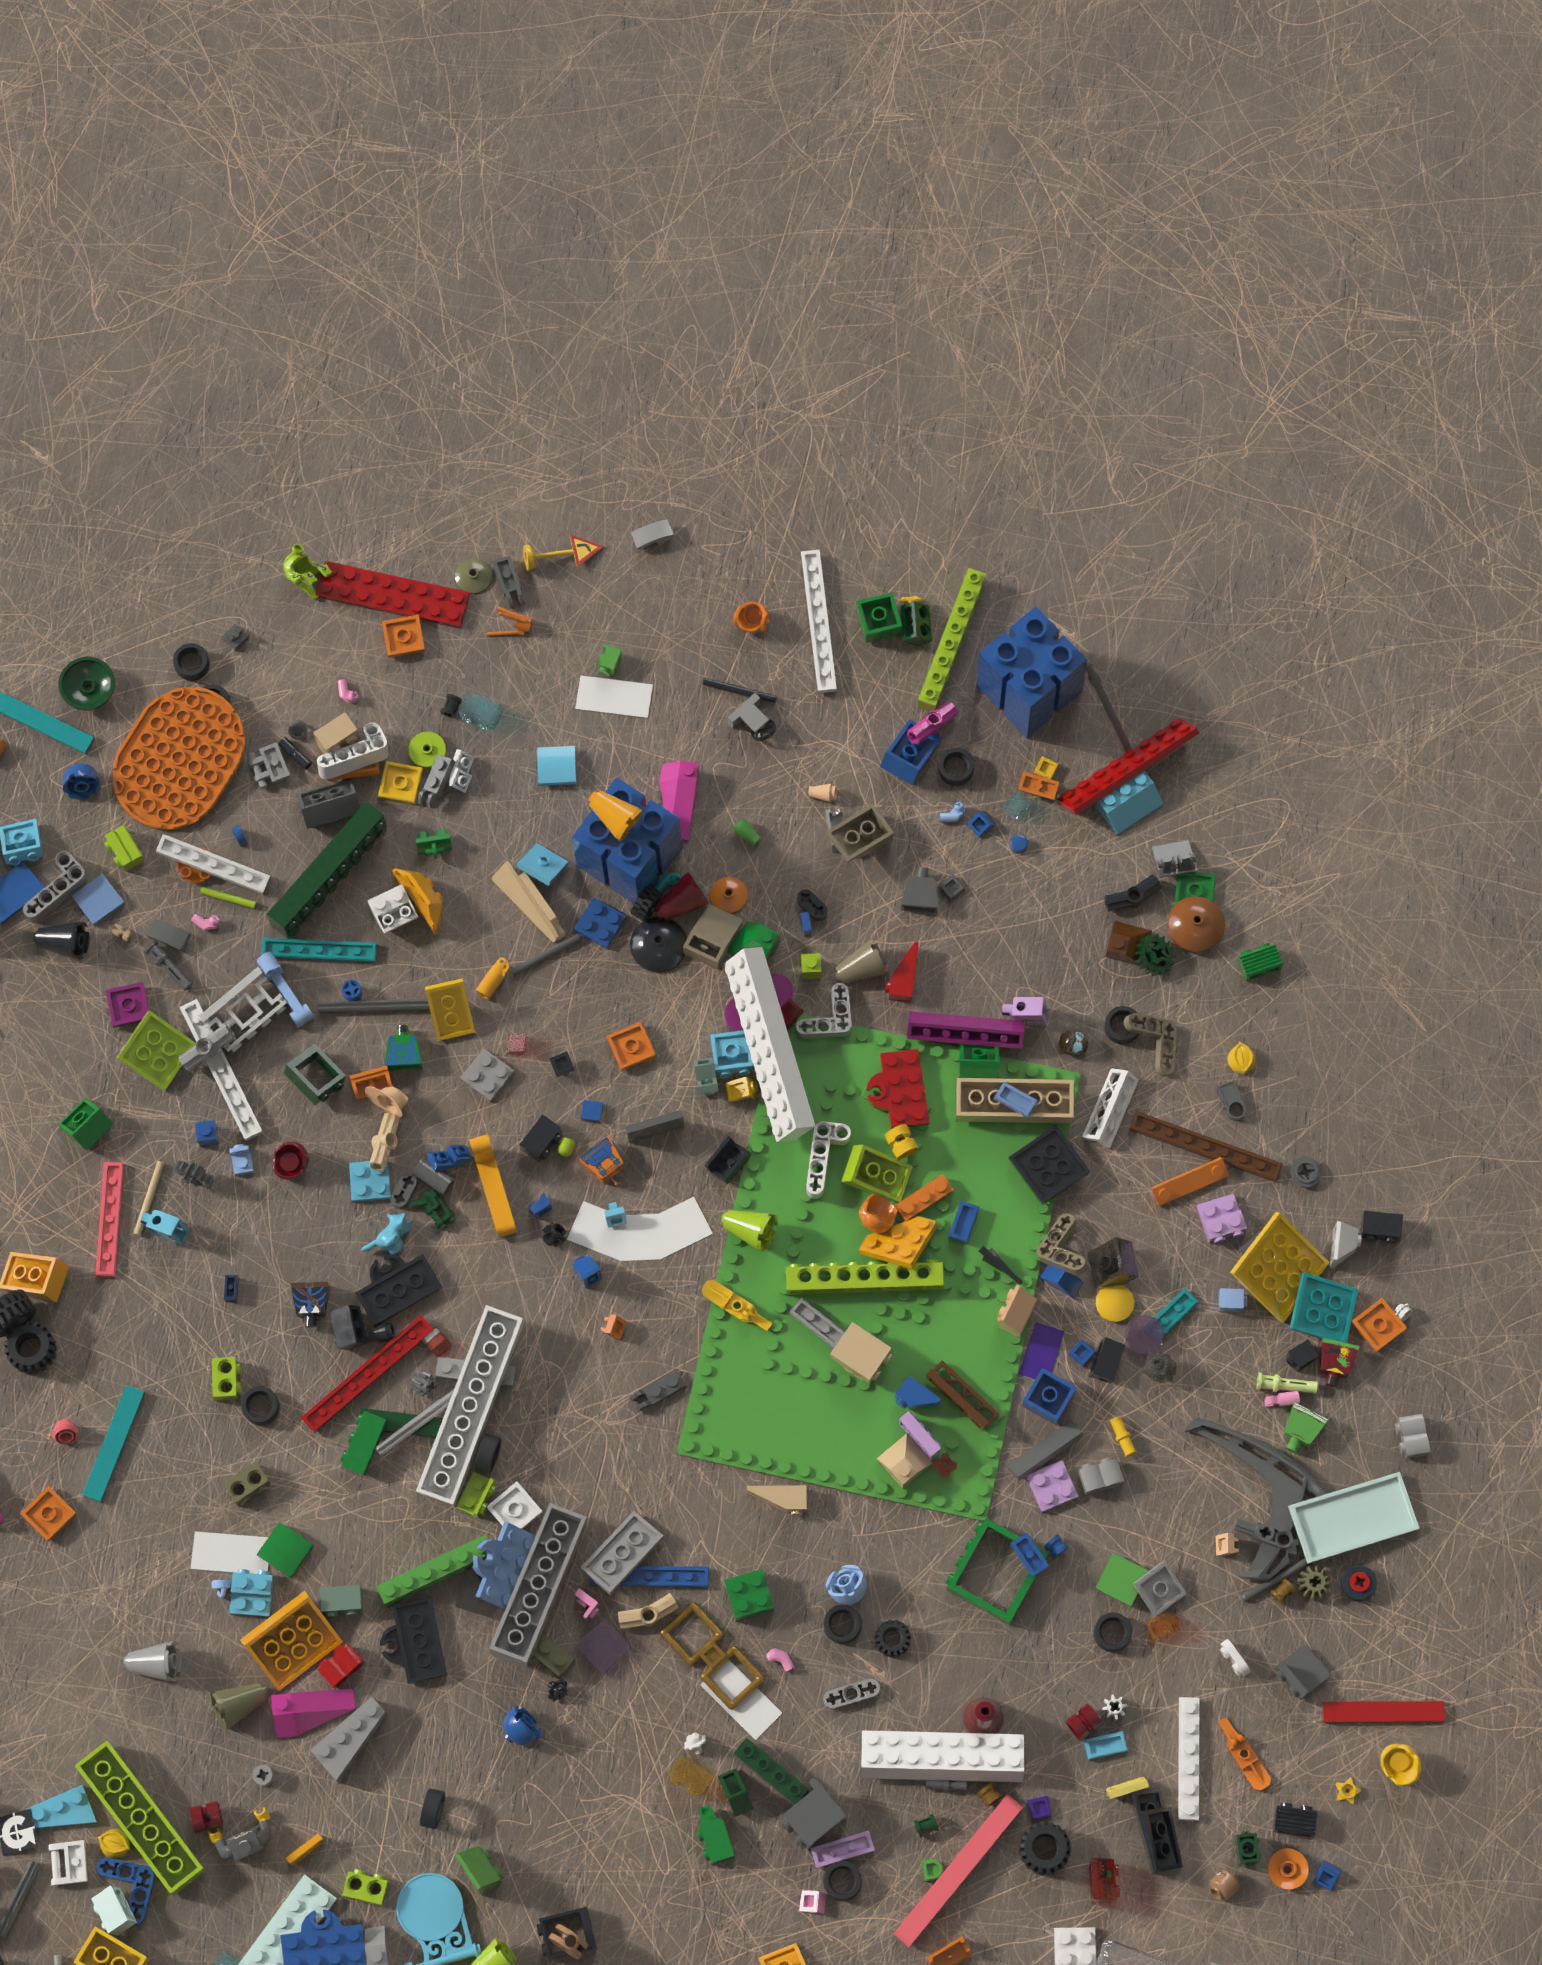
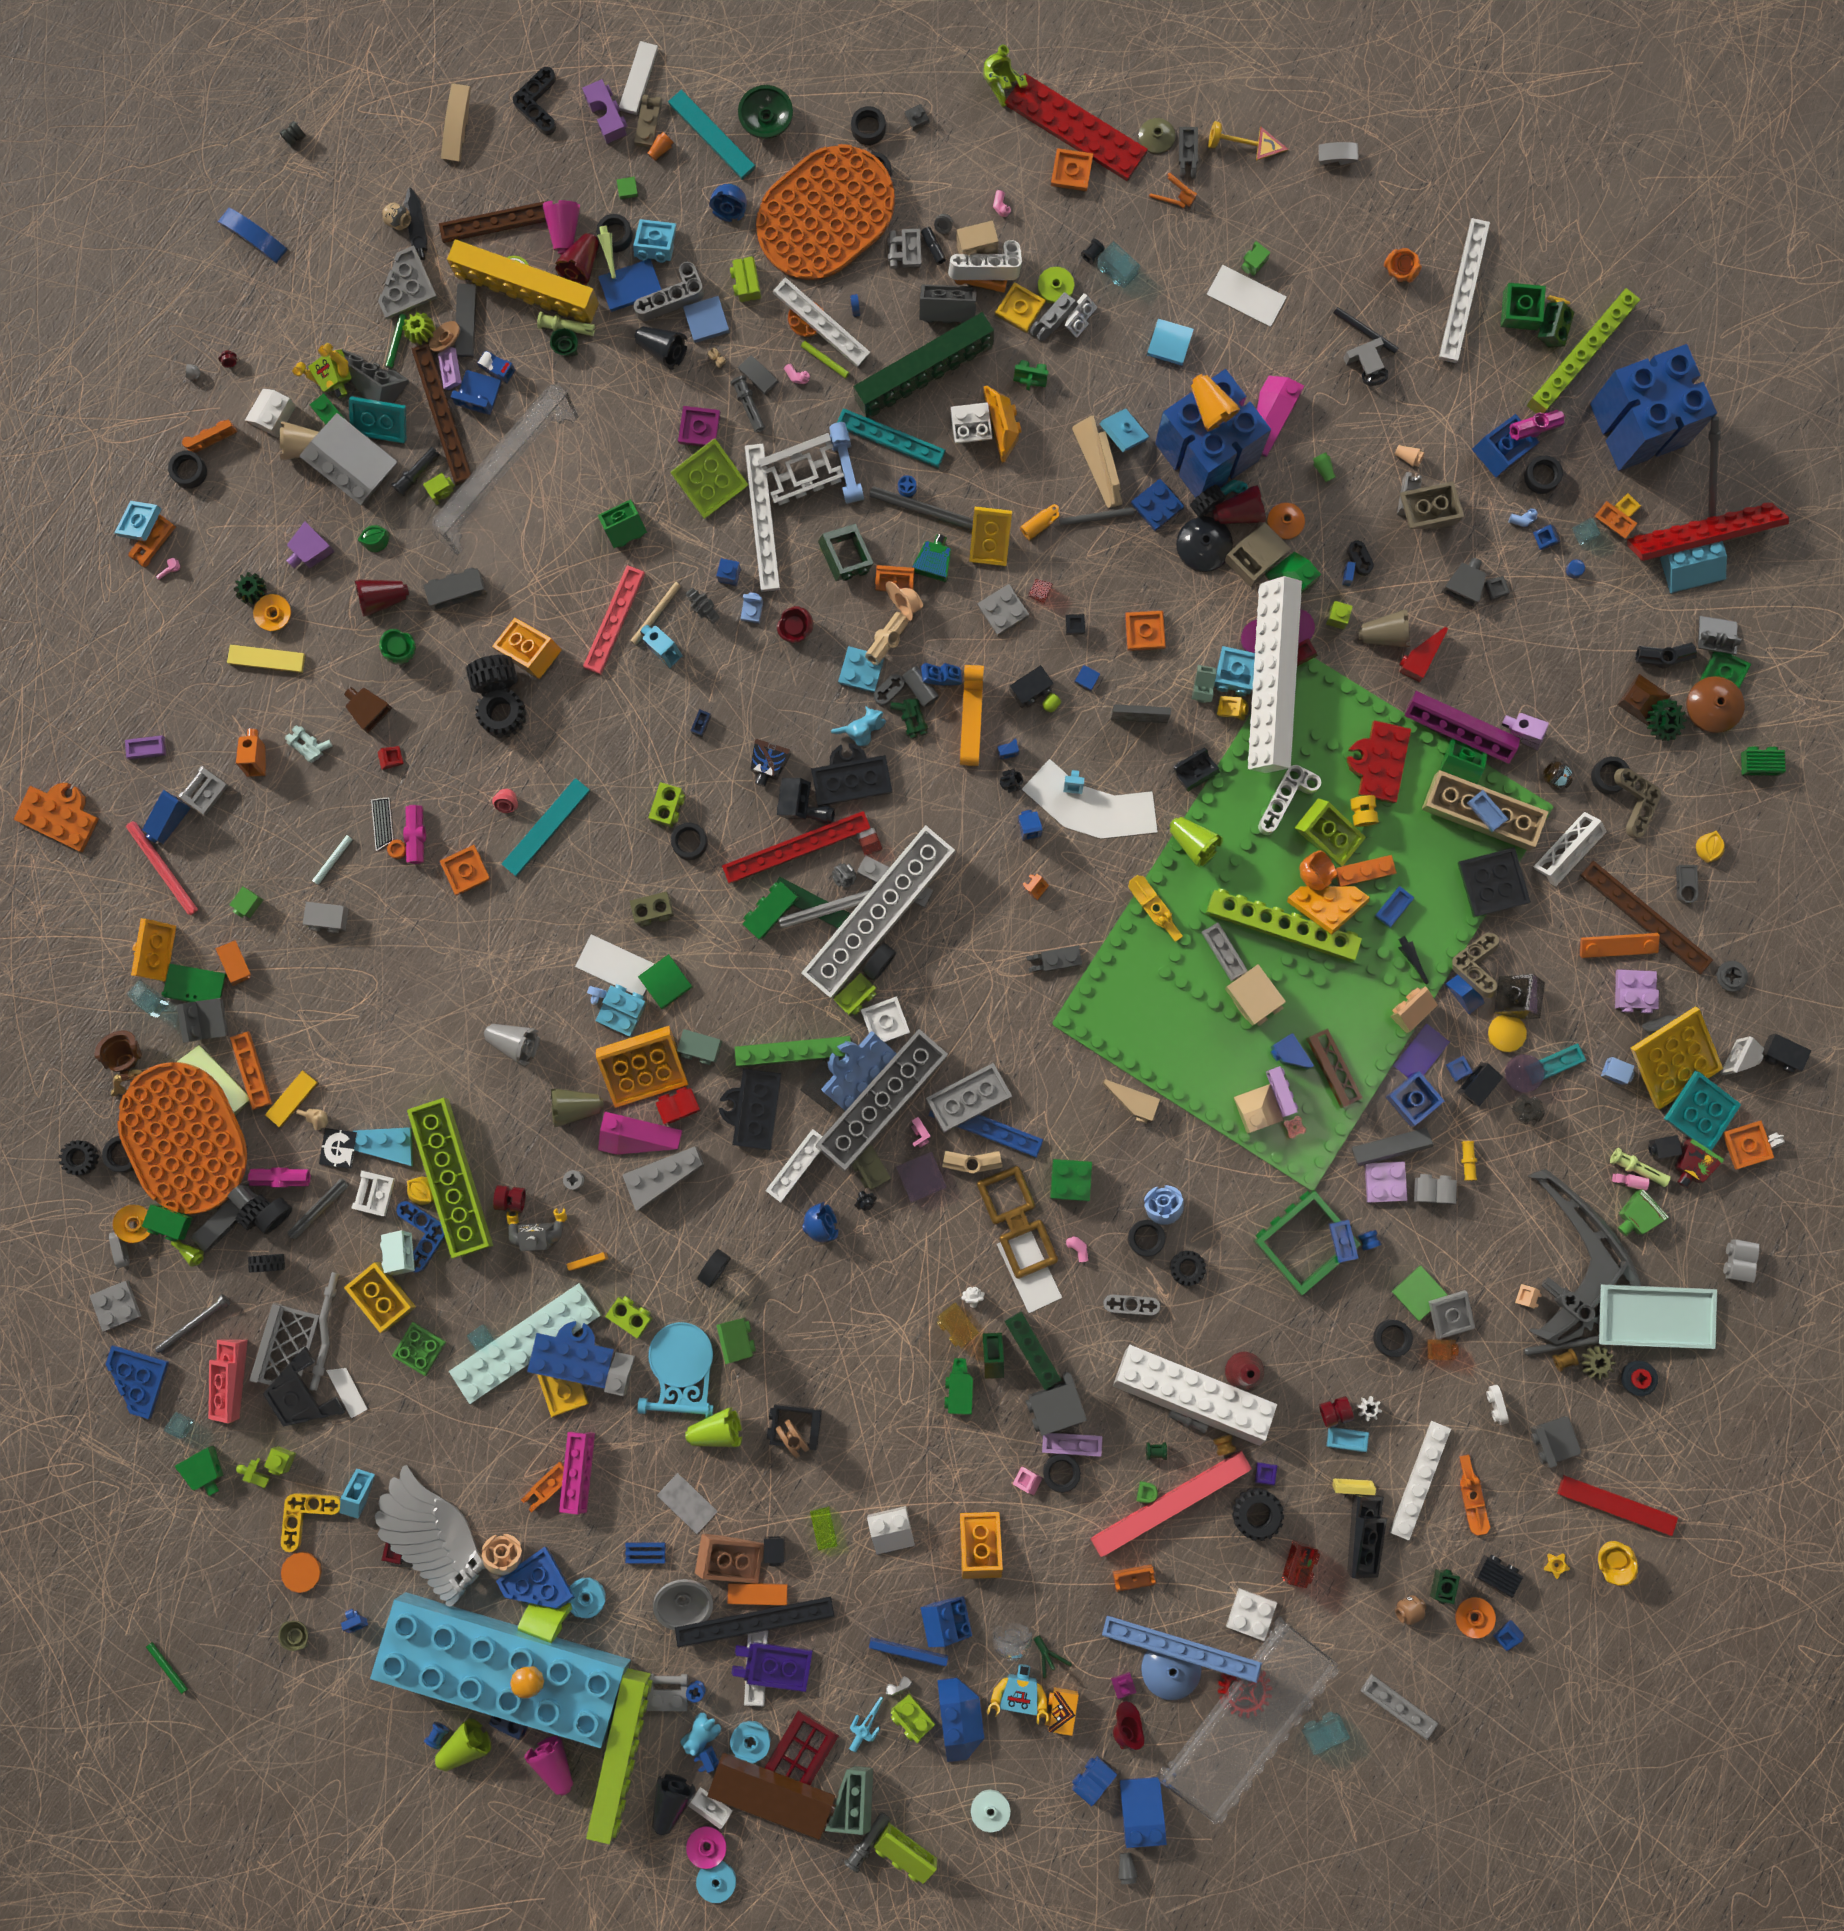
camera: 25 degrees right, 10 degrees up
(216, 1041) = (765, 489): light grey piece -> none
(477, 1682) = (795, 1167): none -> white plate
(604, 1162) = (1081, 730): torso -> none
(832, 1022) = (1340, 675): light grey beam -> none

